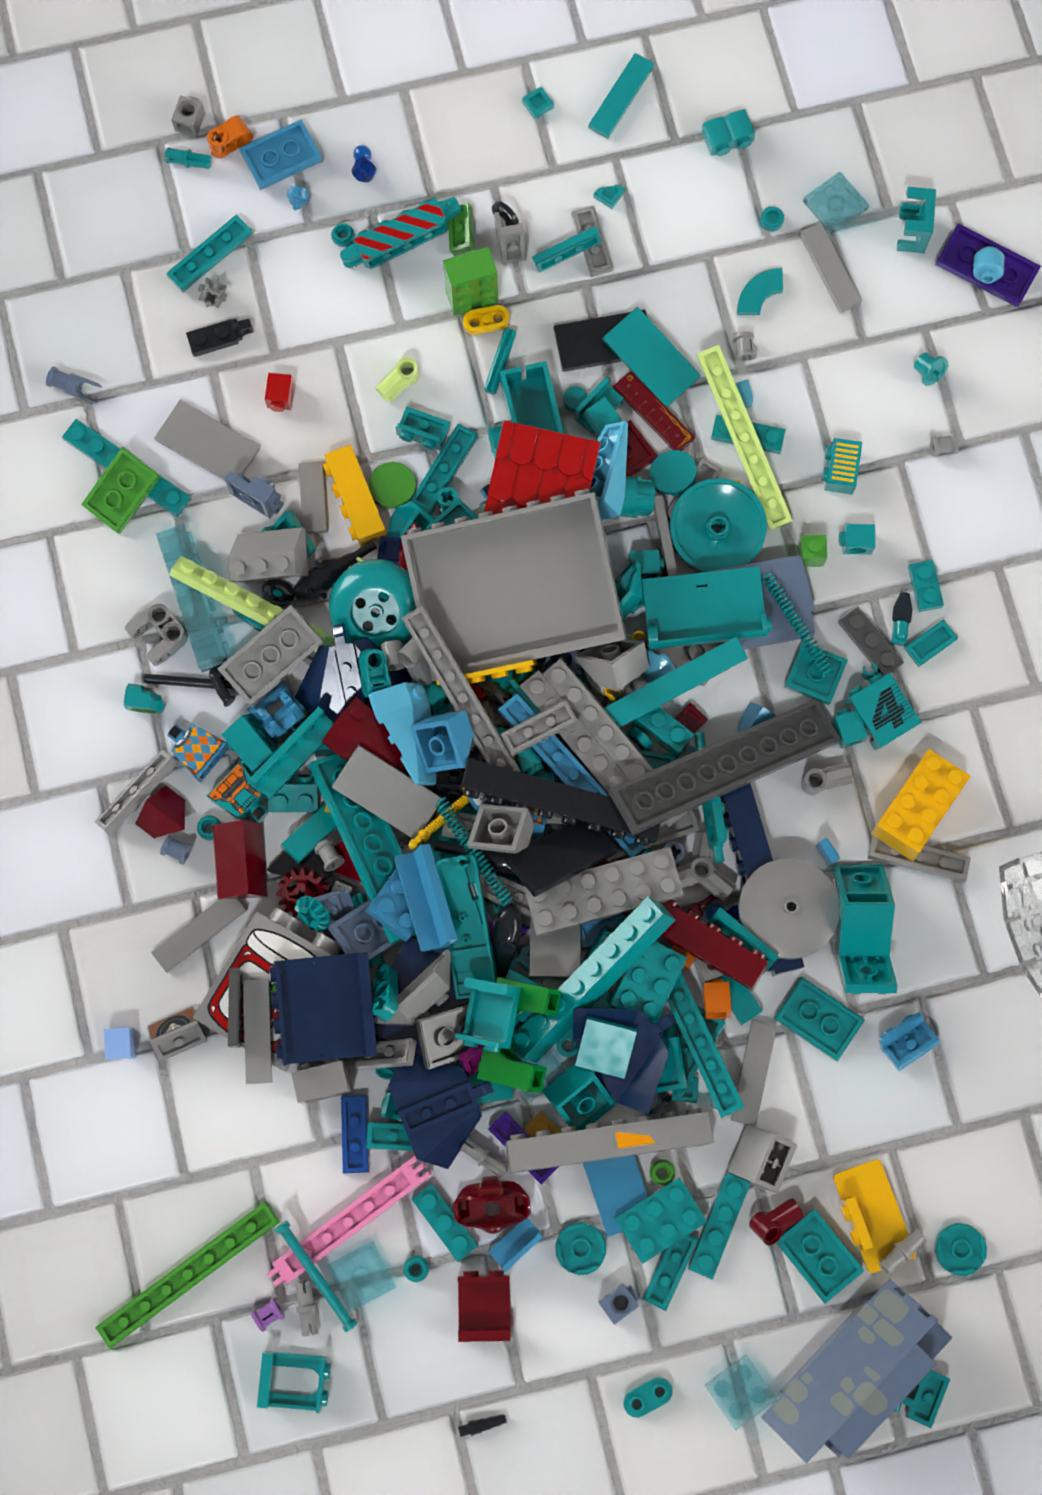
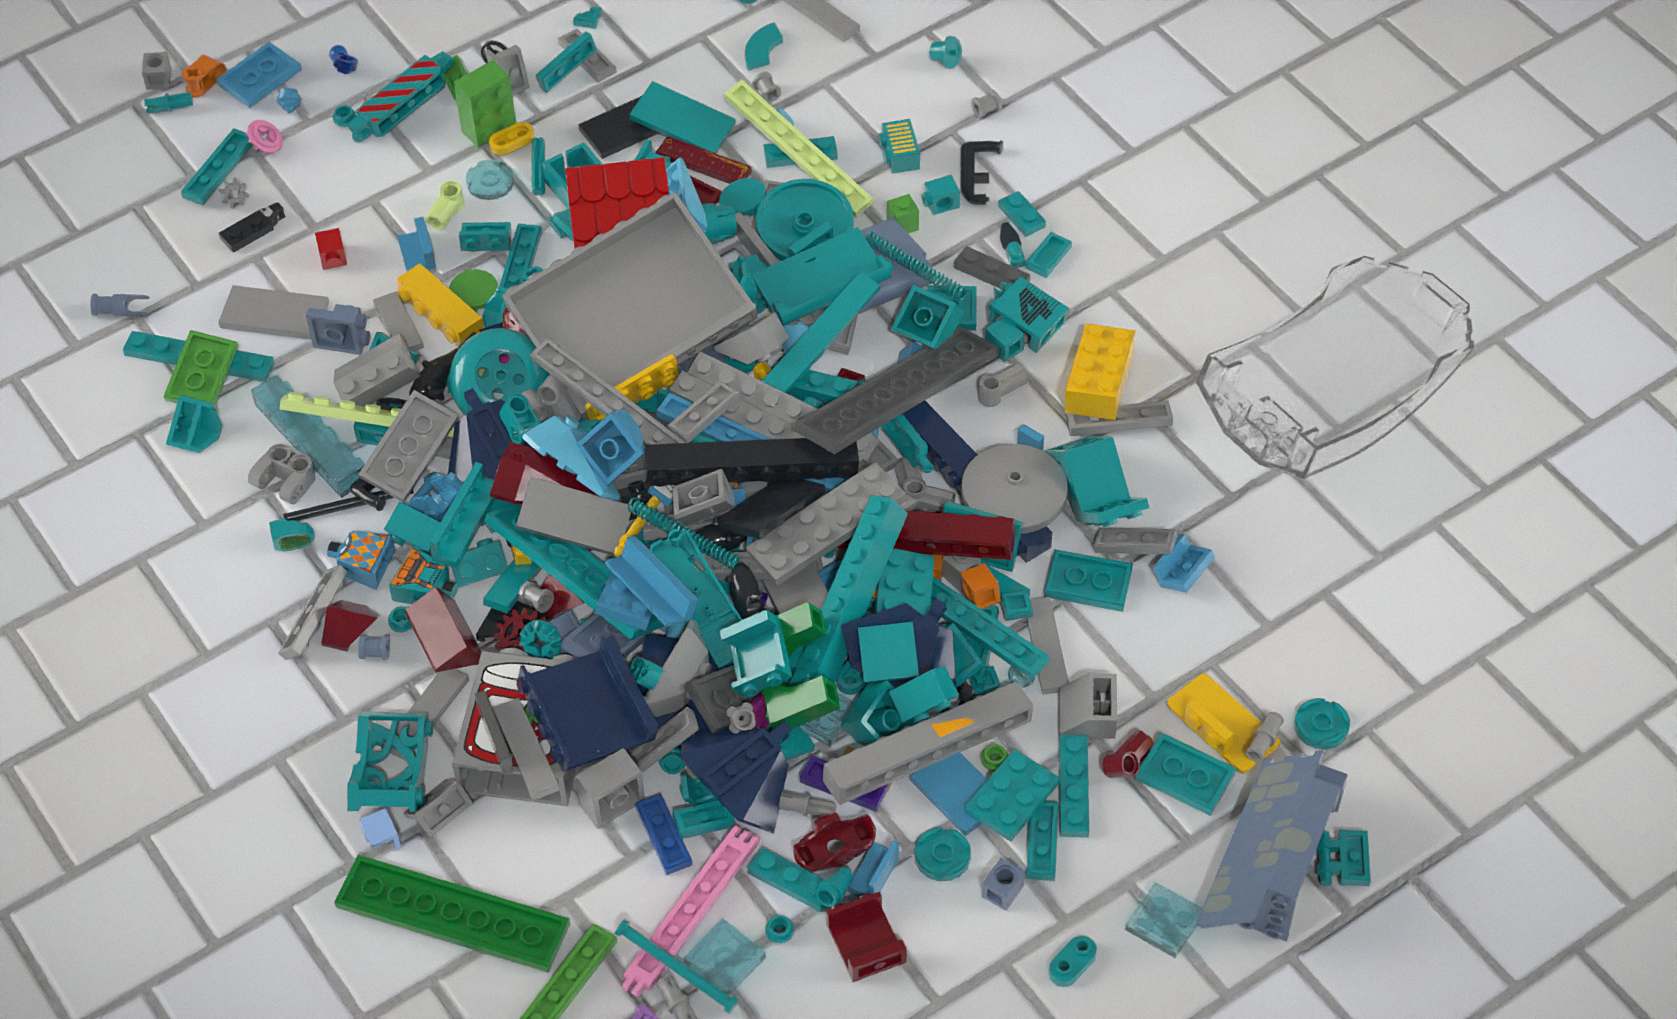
camera: 20 degrees left, 25 degrees down
(97, 549) = (194, 425): none -> teal slope
(139, 945) = (398, 791): none -> teal fence
(153, 1145) = (452, 913): none -> green plate
(270, 235) = (273, 139): none -> bright pink gear
(357, 417) = (417, 247): none -> dark azure panel
(451, 359) = (490, 179): none -> clear light blue tile
(453, 1066) = (746, 723): none -> light grey plate
(474, 1254) = (832, 890): none -> teal cone
(620, 1102) = (924, 694): none -> teal brick
(721, 556) = (816, 236): none -> teal plate
(743, 1026) = (1016, 605): none -> teal tile
(784, 689) = (927, 318): none -> teal slope
(884, 1007) = (1135, 541): none -> light grey tile
(893, 521) = (968, 175): none -> black piece

